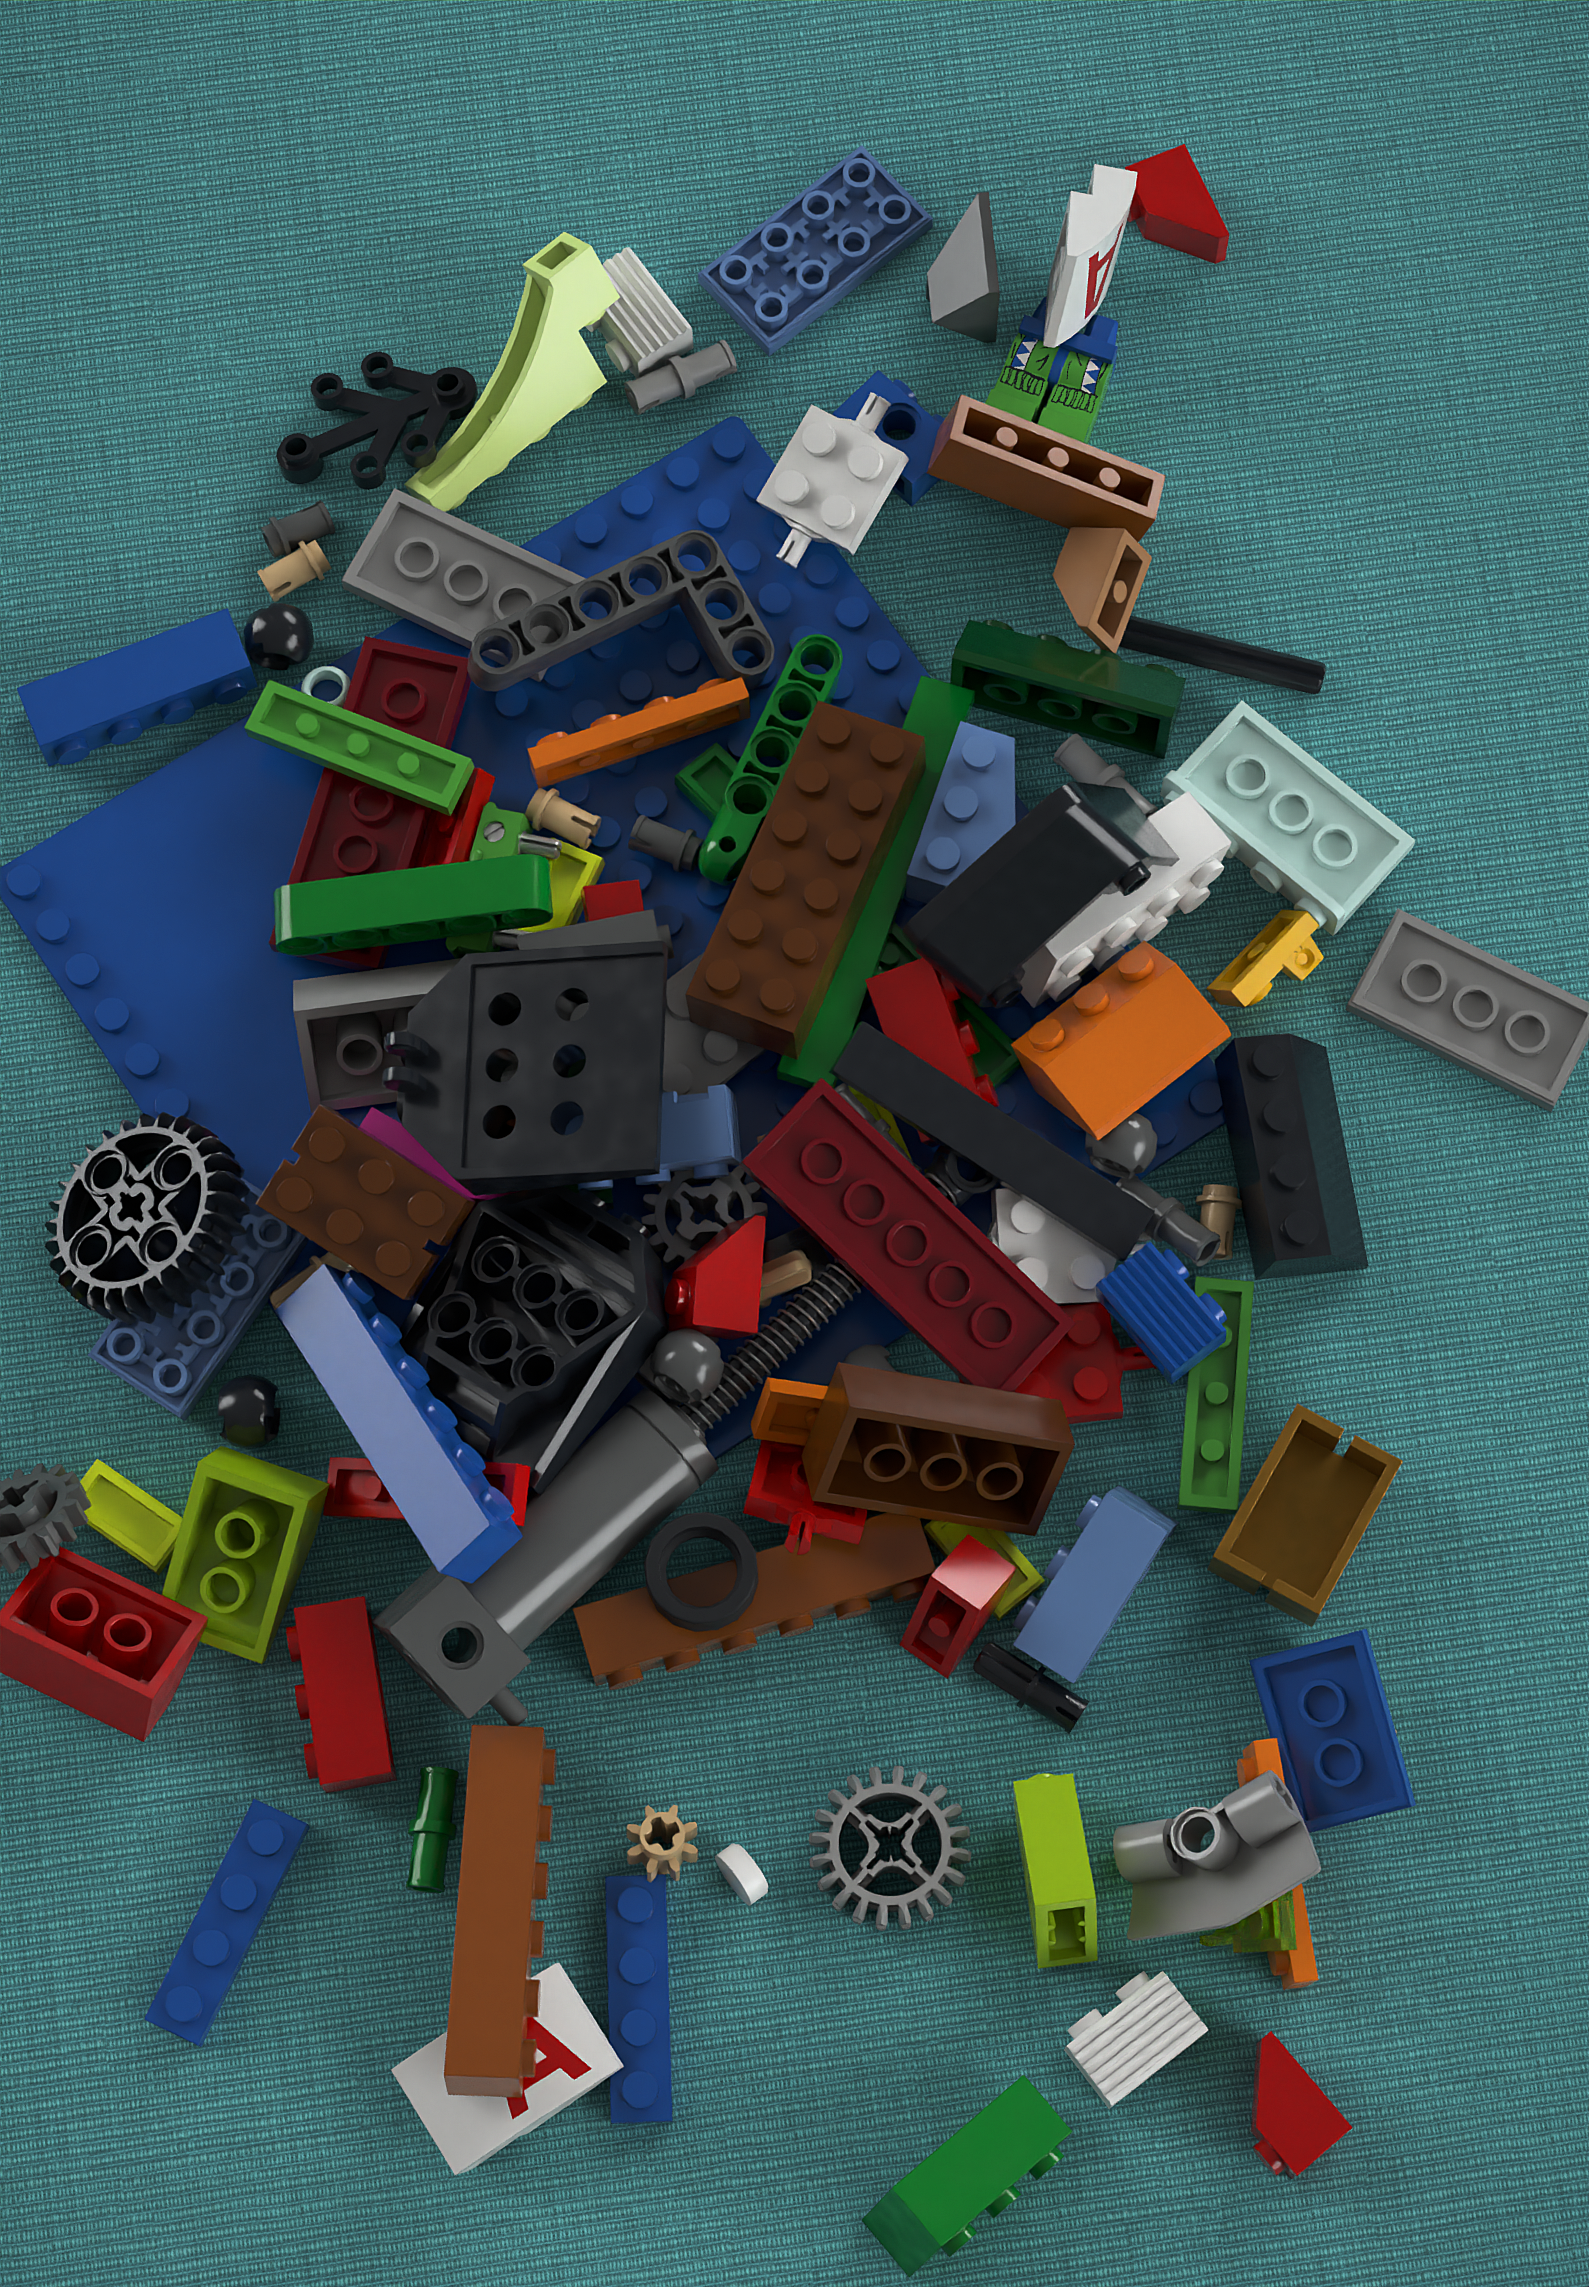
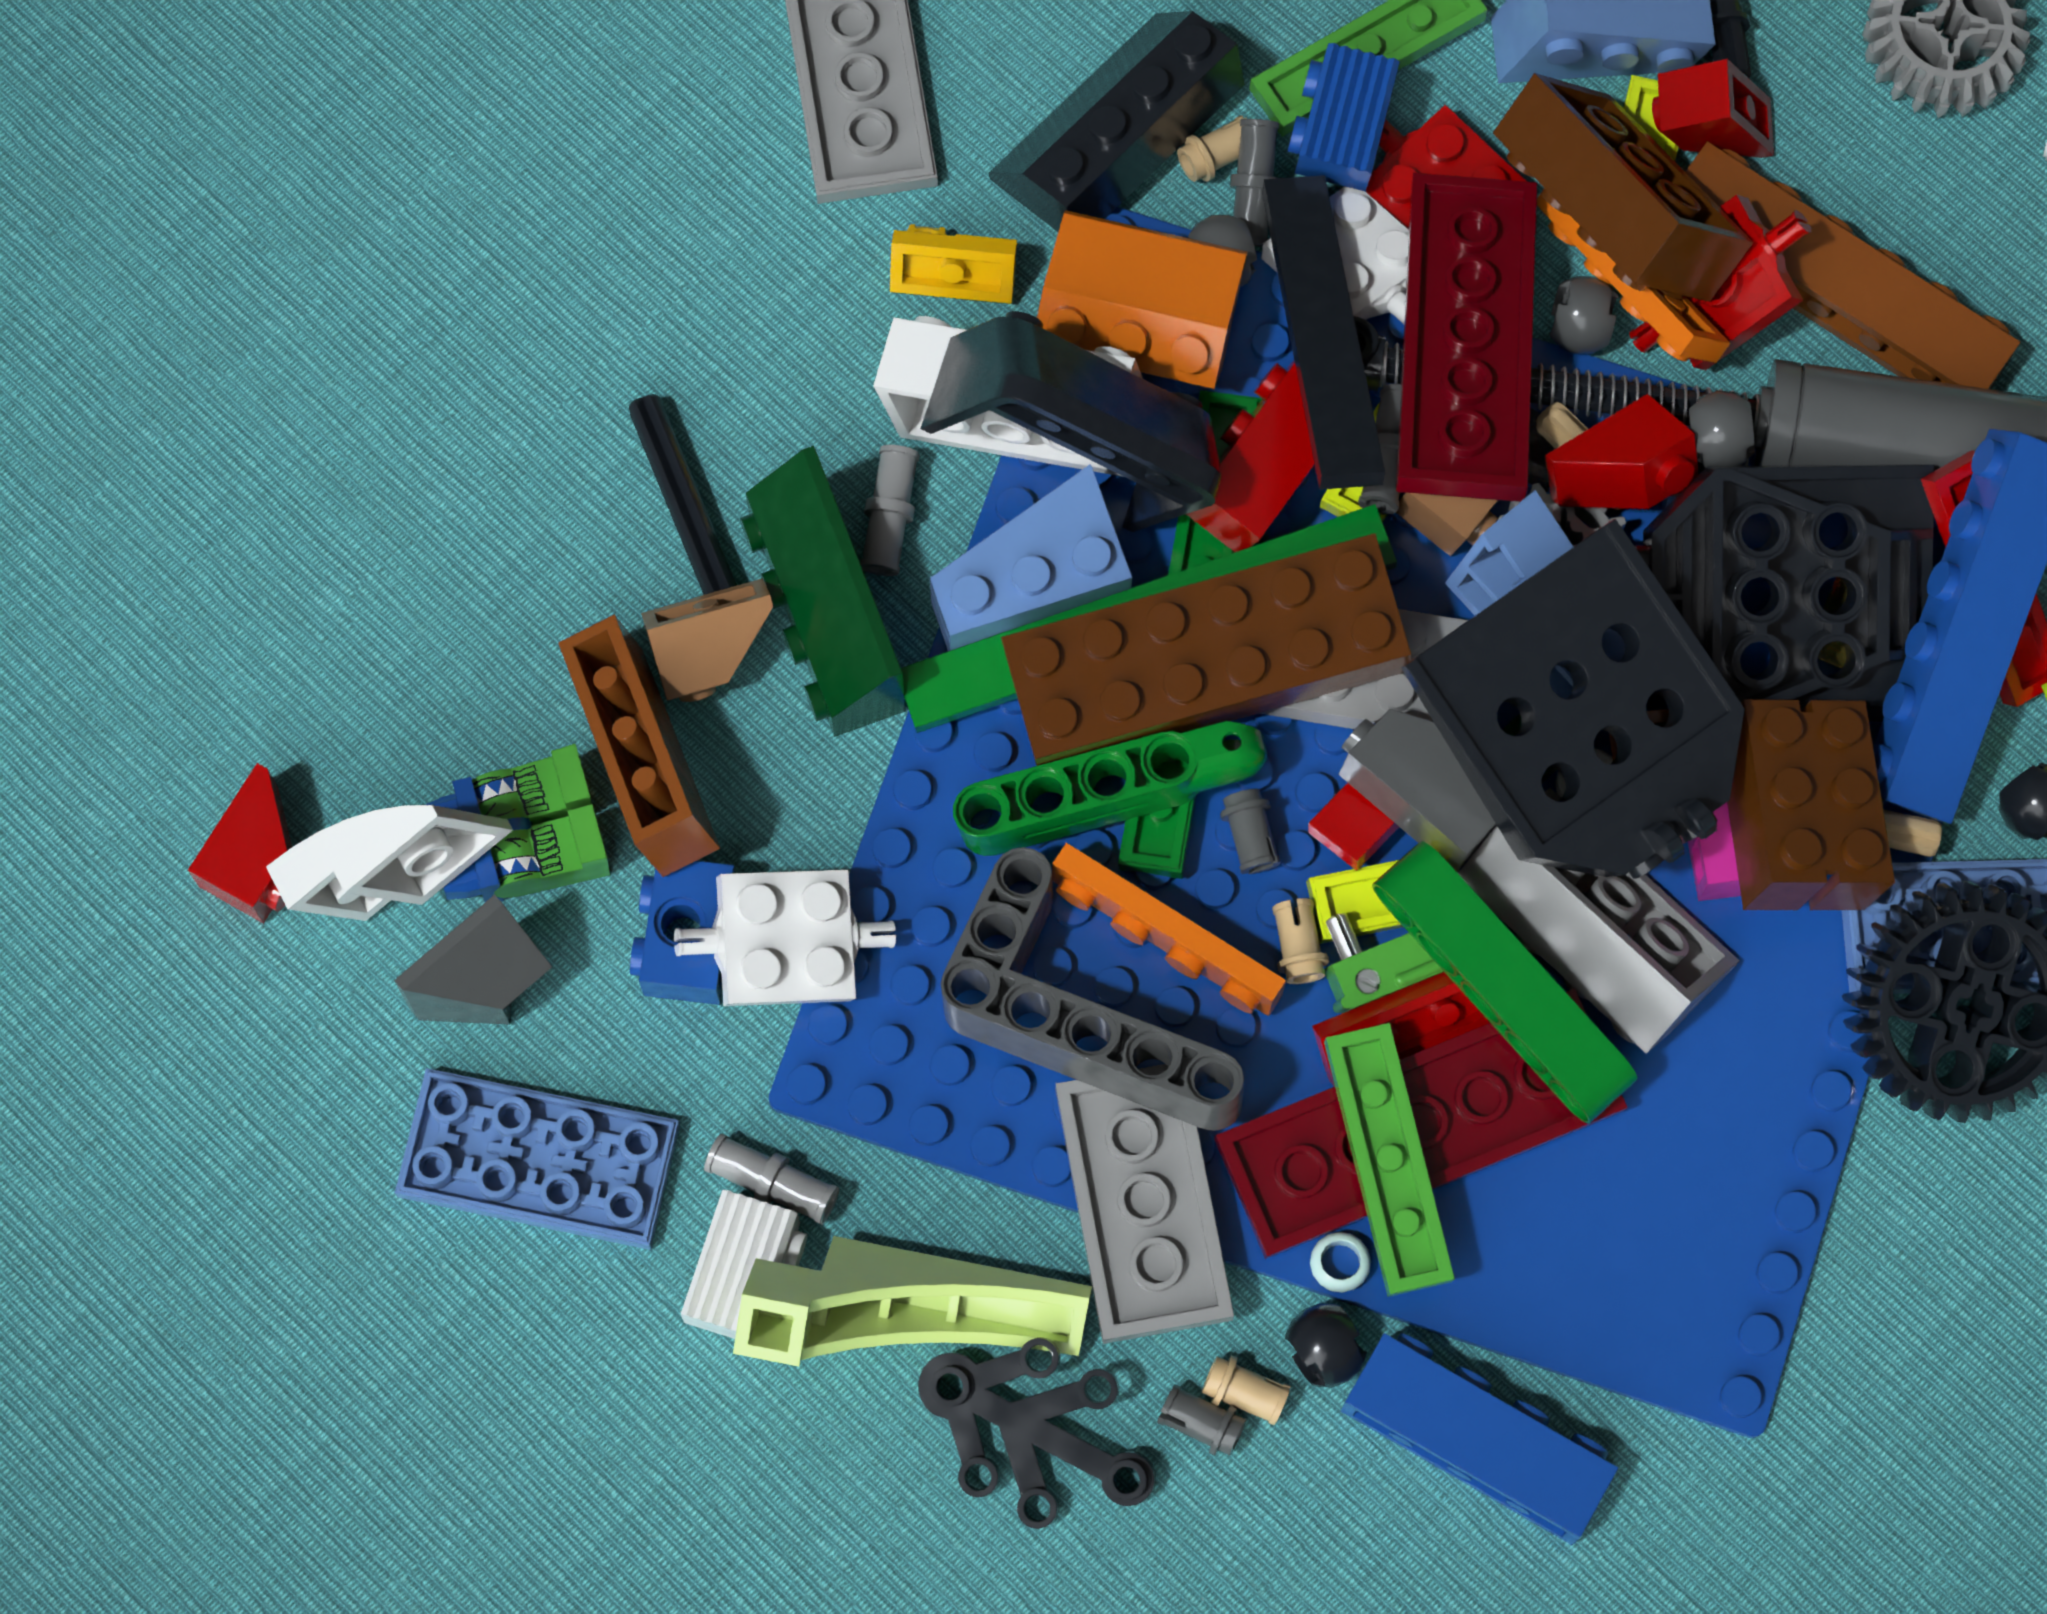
camera: 130 degrees left, 0 degrees up
(699, 1526) = (1887, 264): black tyre -> none
(1290, 818) = (806, 337): light aqua bracket -> none

